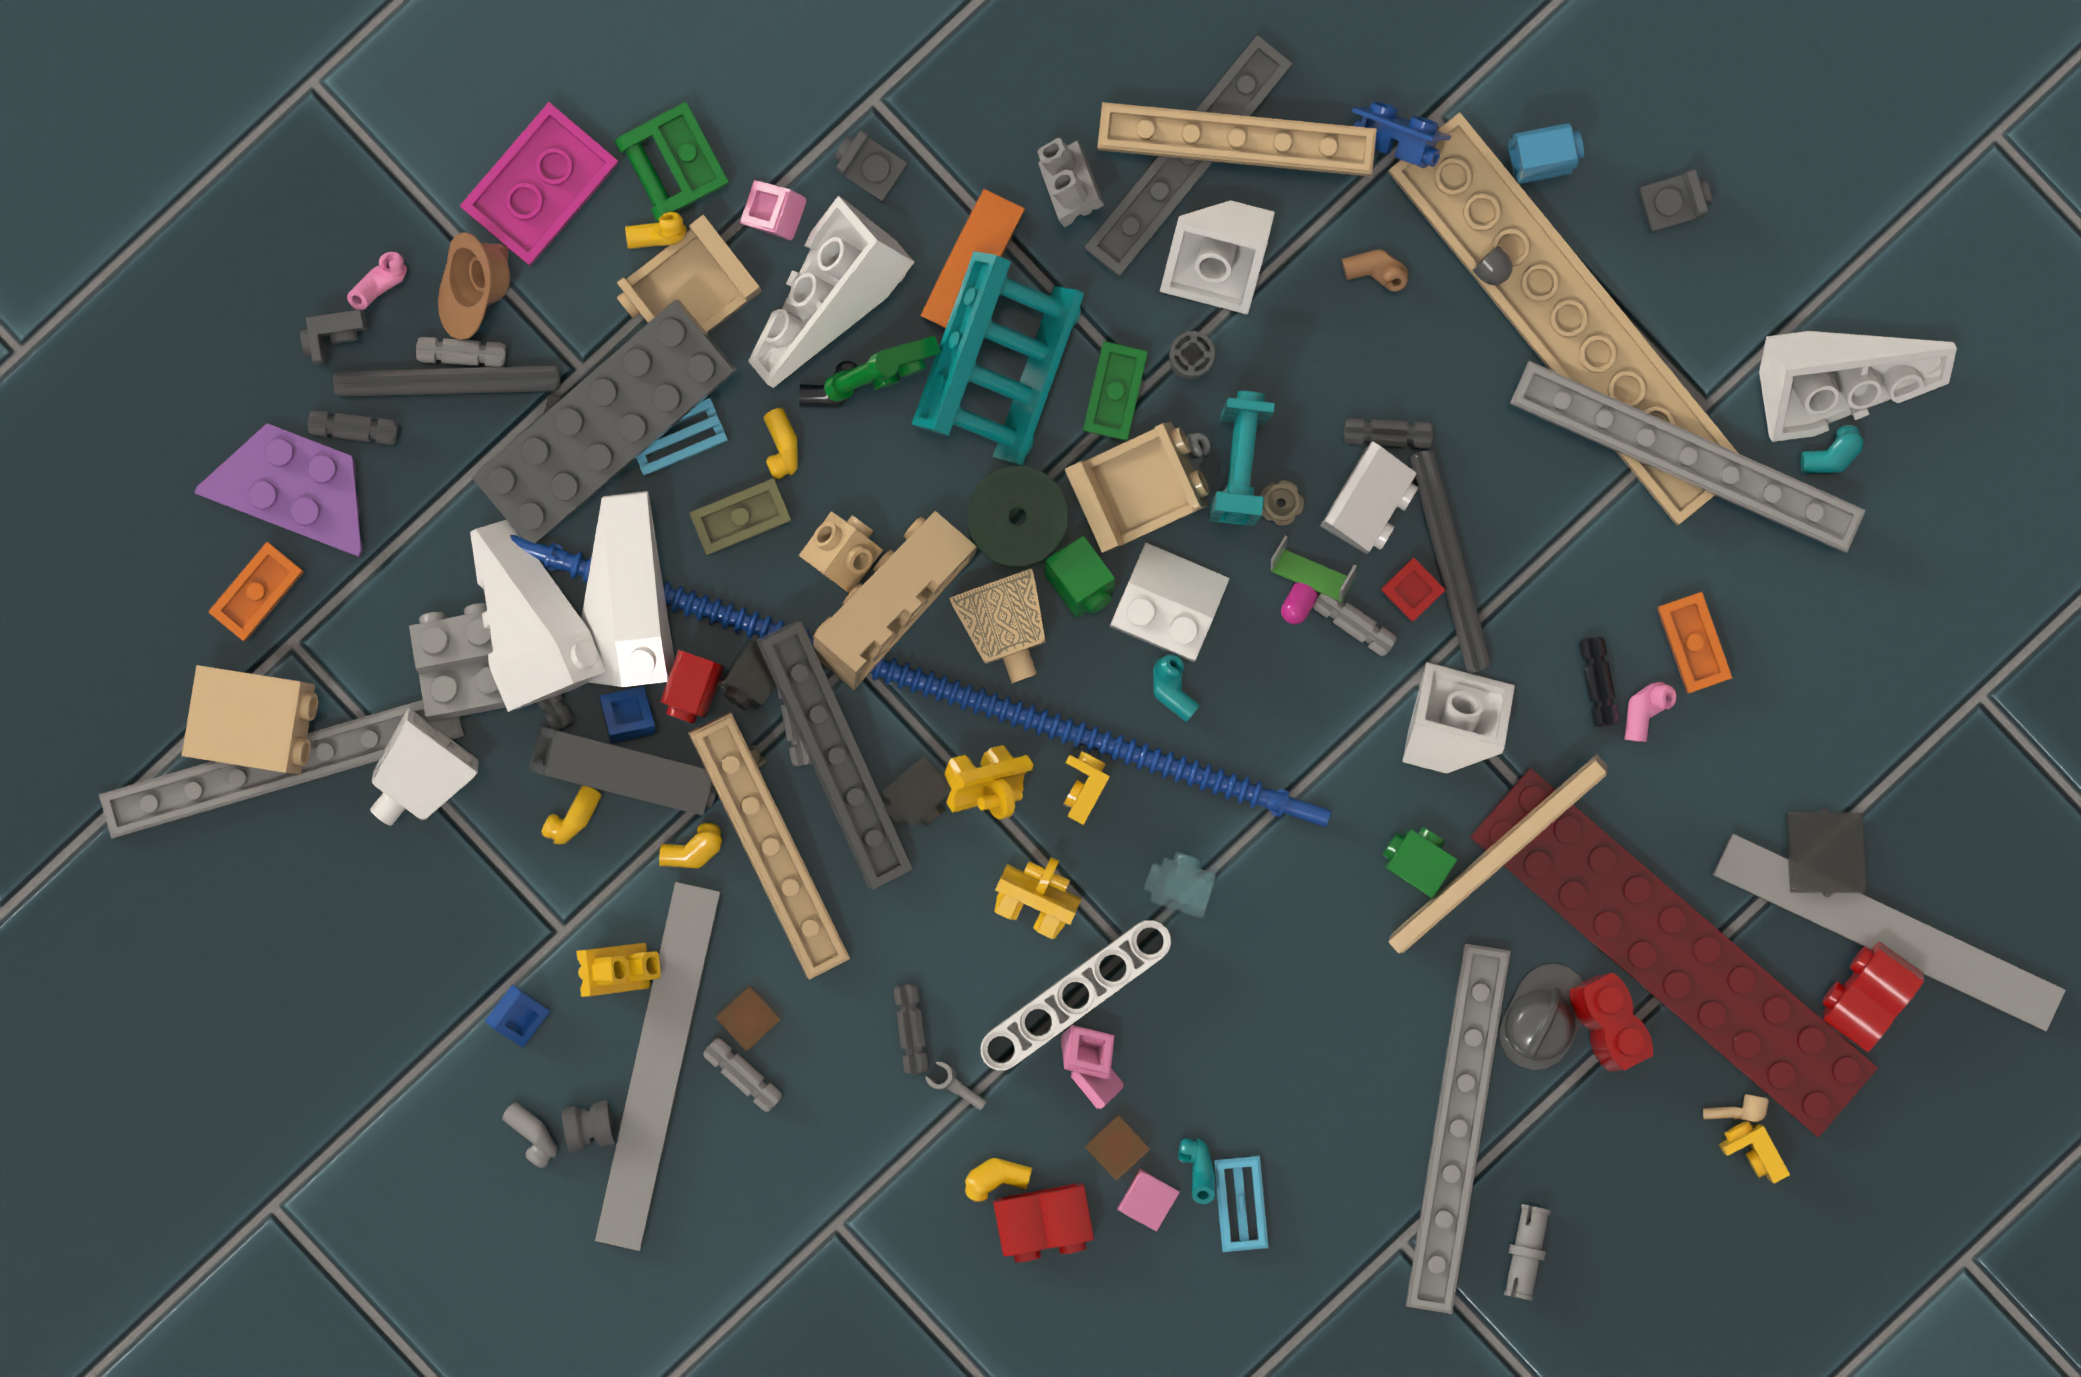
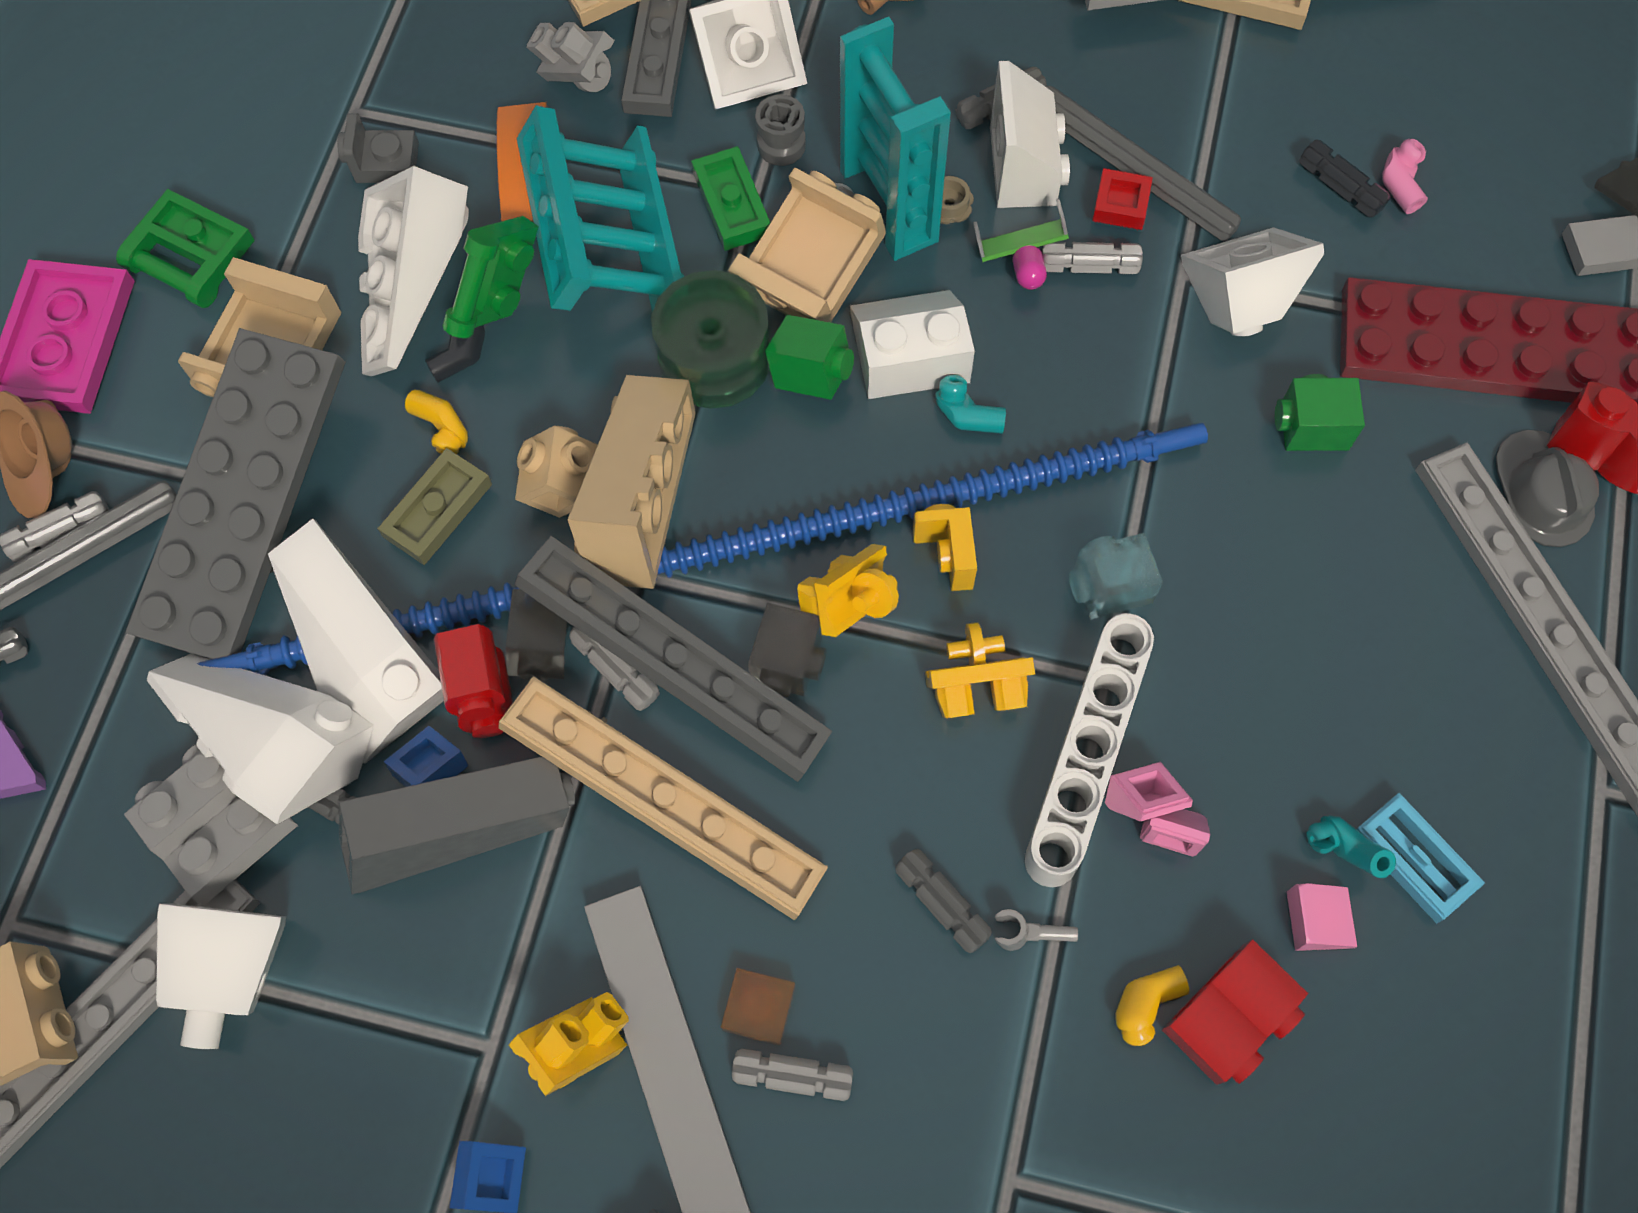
camera: 30 degrees left, 20 degrees down
(576, 819) = (432, 909): yellow arm -> none
(667, 232) = (206, 314): yellow arm -> none
(696, 851) = (588, 861): yellow arm -> none
(713, 421) = (323, 470): medium azure tile -> none
(773, 210) = (311, 237): bright pink slope -> none
(1004, 622) = (761, 442): tan torso -> none
(1117, 1147) = (1250, 880): clear orange plate -> none
(1498, 854) = (1392, 348): tan tile -> none
(1694, 642) = (1397, 99): orange plate -> none

